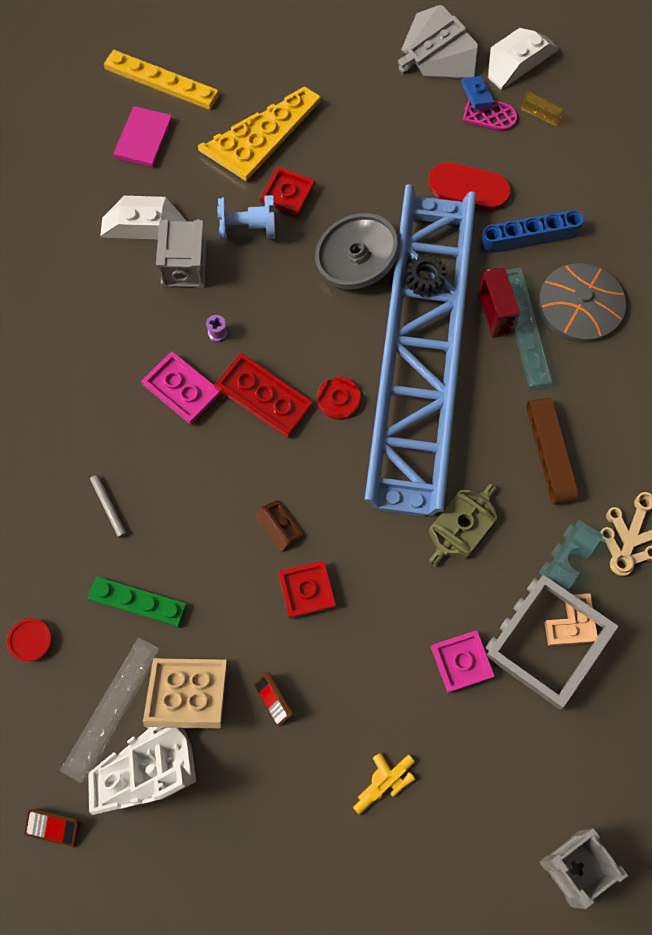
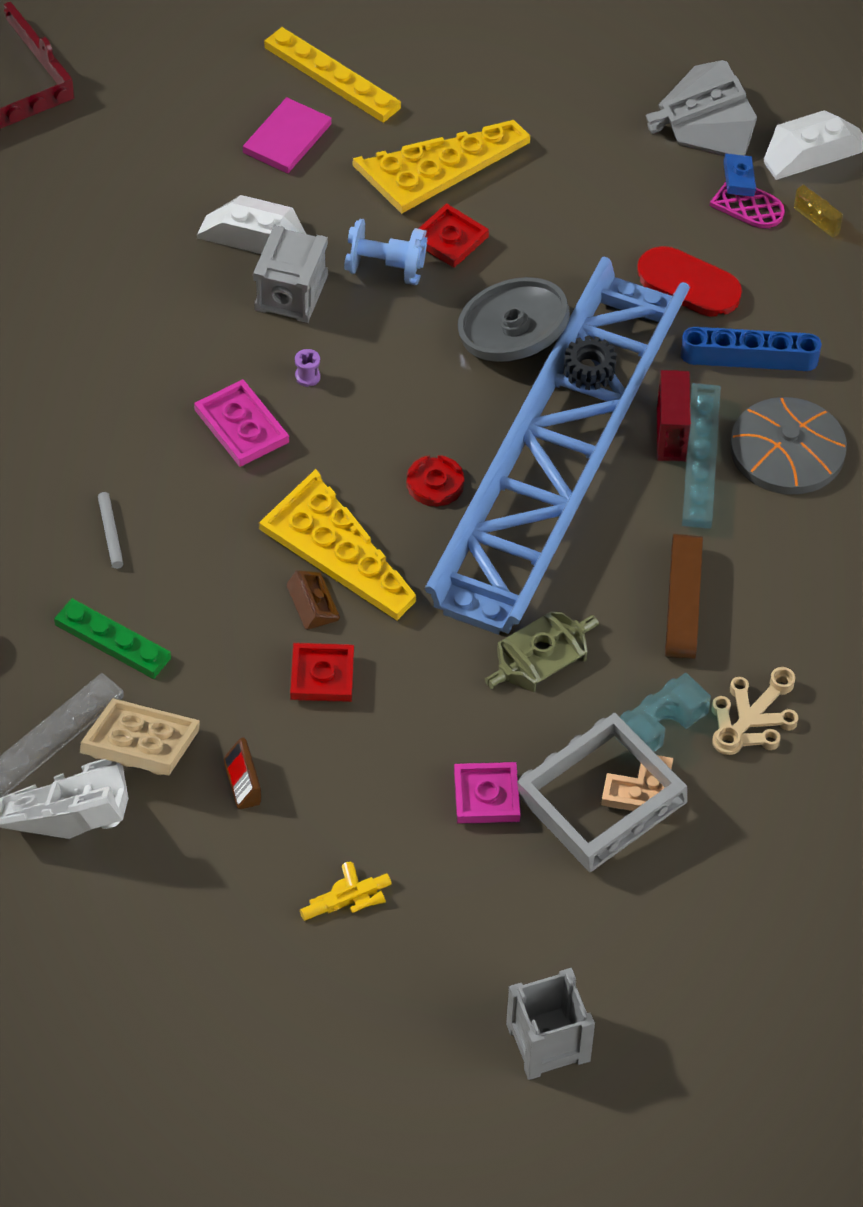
camera: 15 degrees right, 15 degrees down
(263, 394) = (341, 453): red tile -> none
(277, 470) = (332, 540): none -> yellow wing

